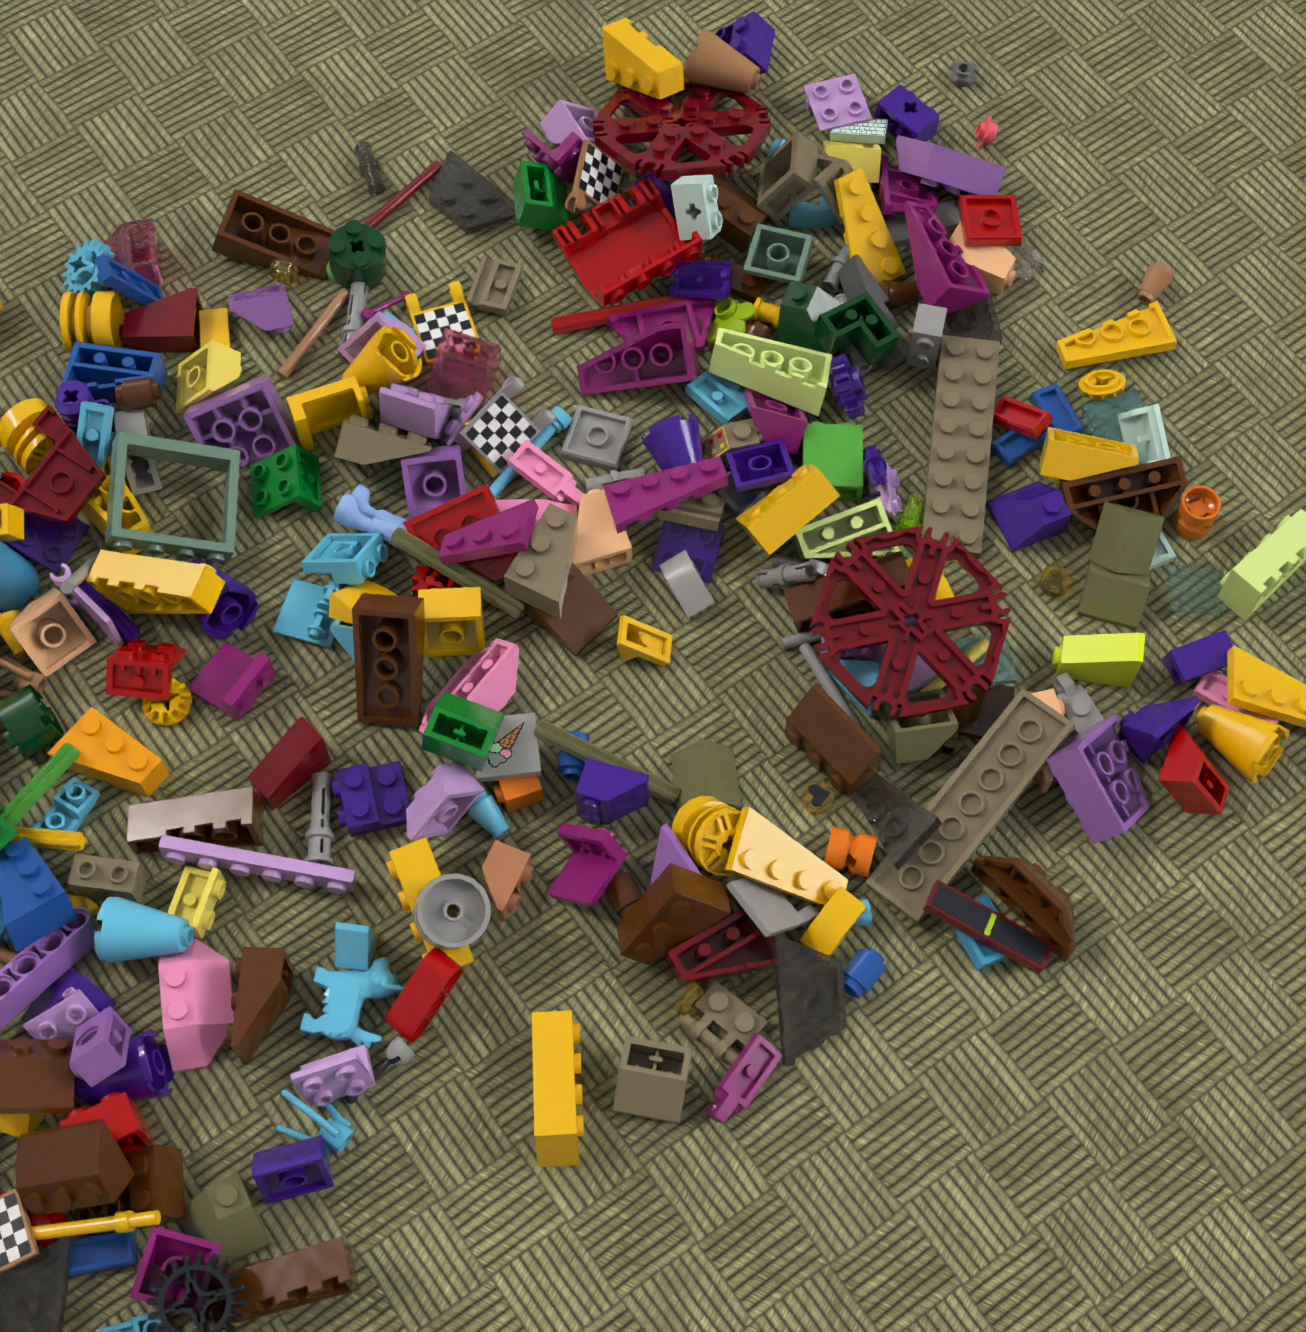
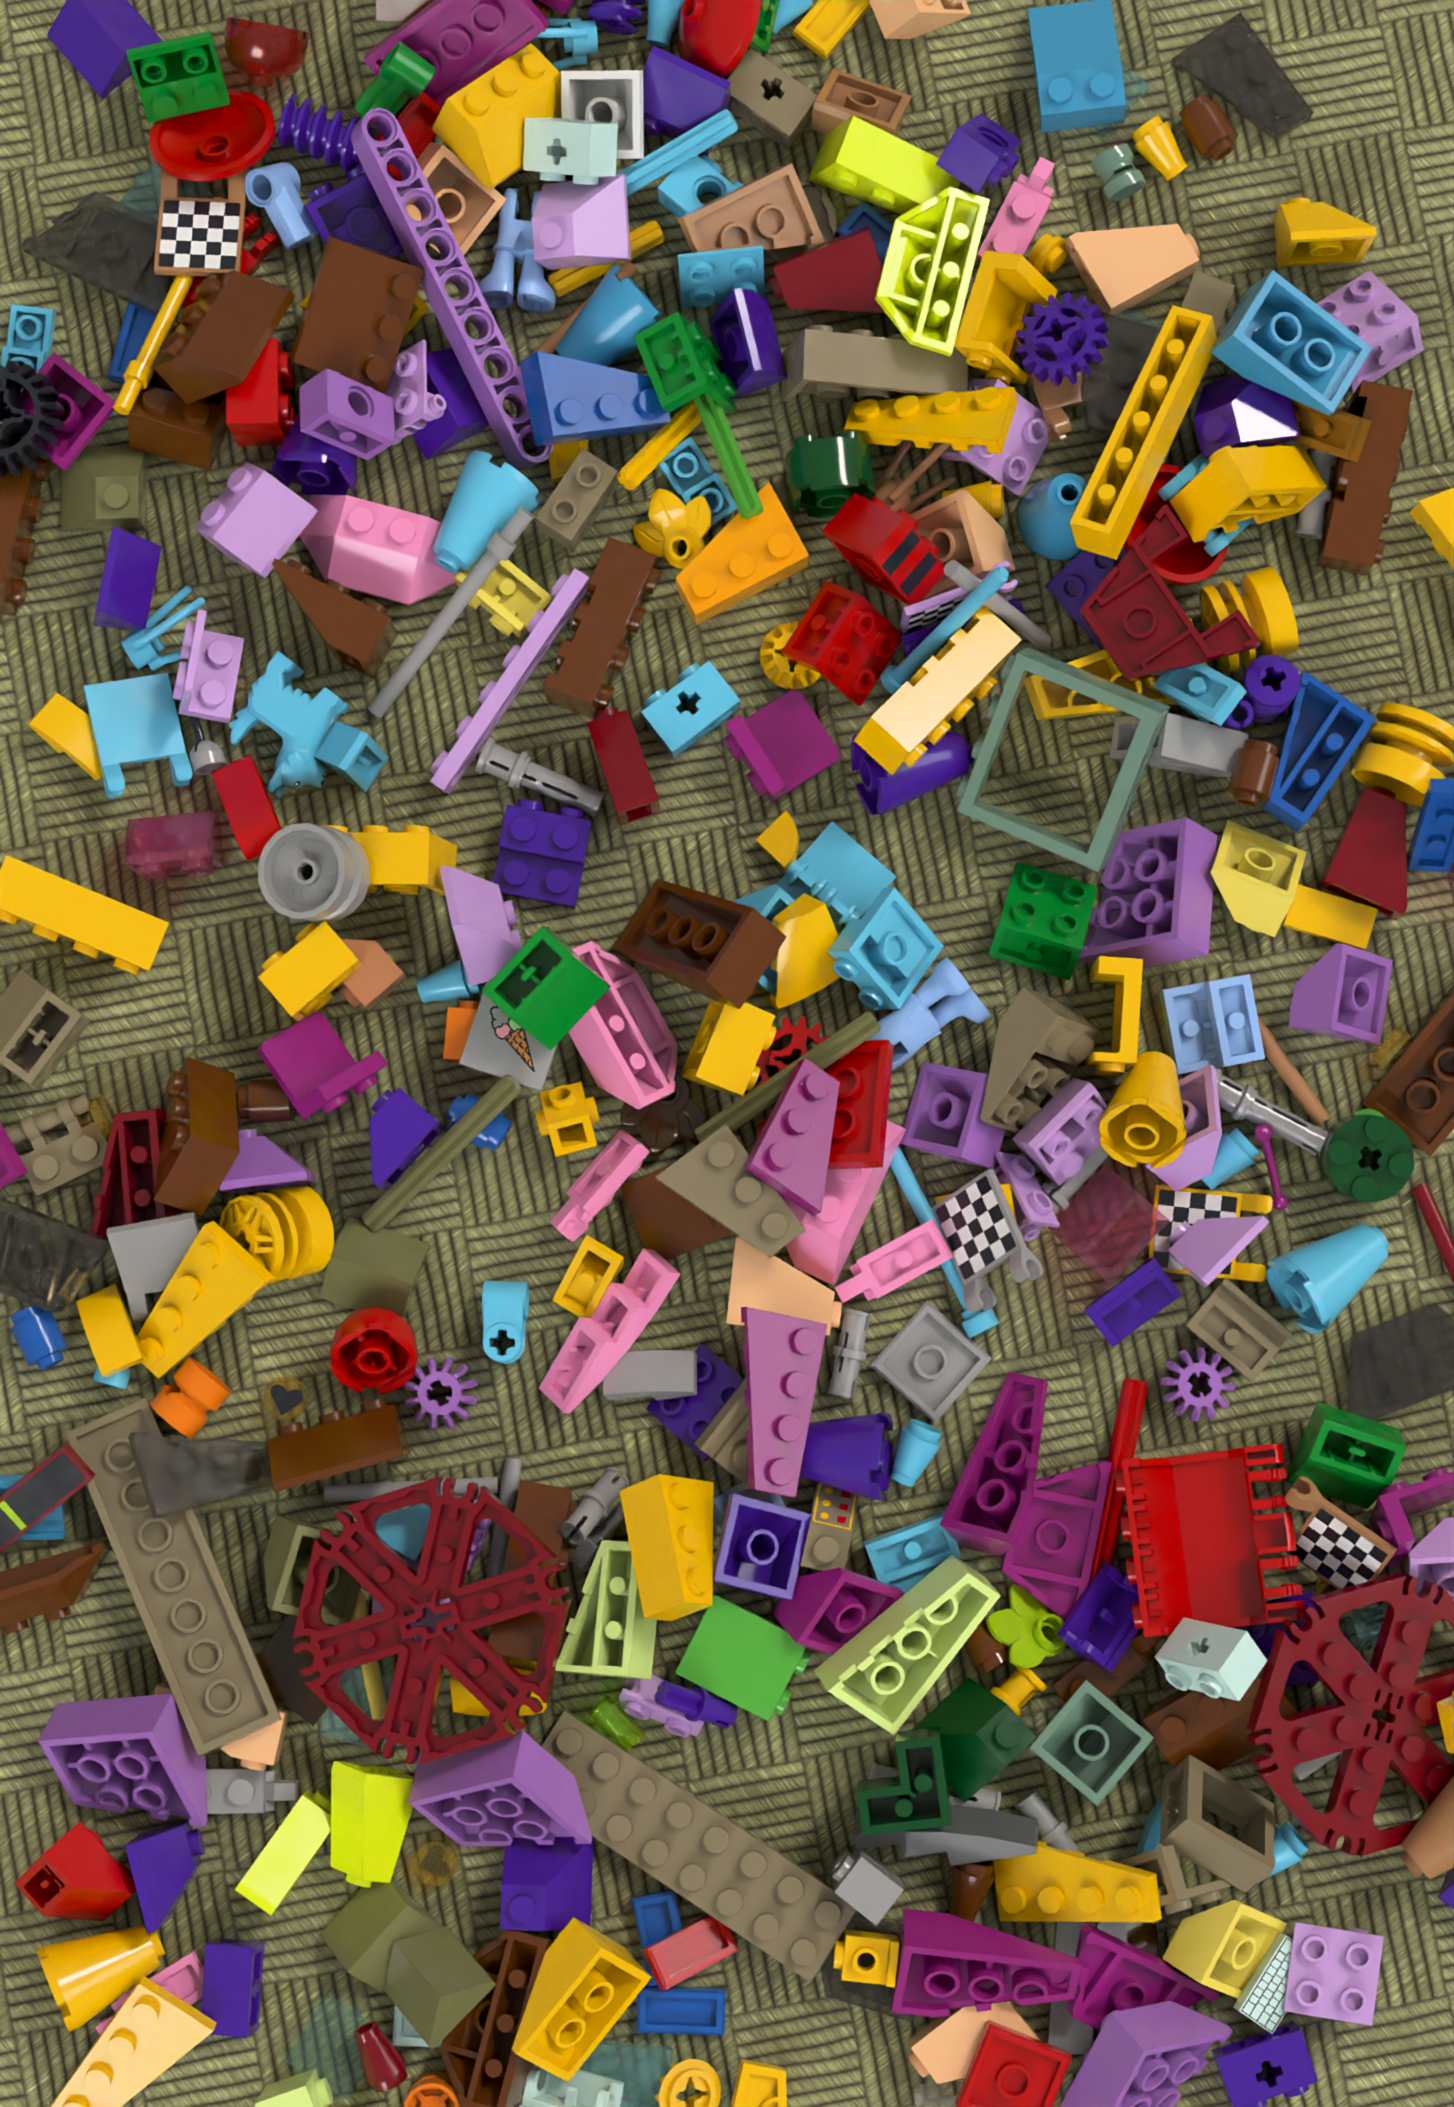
camera: 115 degrees right, 20 degrees up
(69, 659) = (885, 548): none -> red brick
(101, 811) = (670, 524): none -> yellow plate
(157, 630) = (895, 676): none -> medium azure bar
(161, 897) = (499, 548): none -> light grey bar
(207, 1087) = (255, 519): none -> lavender slope
(222, 732) = (713, 706): none -> medium azure brick
(299, 654) = (781, 840): none -> yellow tile
(308, 364) = (1212, 1023): none -> light blue slope
(399, 1110) = (136, 724): none -> medium azure flag
(421, 1150) = (68, 731): none -> yellow slope
(440, 249) = (1326, 1274): none -> medium azure cone
(449, 300) = (1212, 1244): none -> lavender slope
(472, 1038) = (174, 845): none -> clear pink slope
(514, 351) = (1132, 1301): none -> dark purple hinge
(525, 895) = (309, 970): none -> yellow brick
(528, 643) = (665, 1120): none -> dark brown plate
(538, 292) = (1211, 1381): none -> medium lavender gear
(546, 697) = (568, 1118): none -> yellow brick
(578, 664) = (598, 1184): none -> bright pink hinge
(650, 416) = (914, 1451): none -> medium azure cone
(673, 617) = (604, 1338): none -> bright pink slope
(693, 685) = (505, 1310): none -> medium azure piece
(756, 747) = (374, 1350): none -> red cylinder
(763, 690) = (435, 1406): none -> medium lavender gear
(848, 386) = (835, 1732): dark purple gear -> none
(967, 316) = (883, 1948): none -> yellow brick
(988, 539) = (501, 1795): none -> medium lavender wedge
(1053, 619) = (368, 1820): none -> neon yellow slope
(1189, 554) = (380, 2058): none -> dark red cone

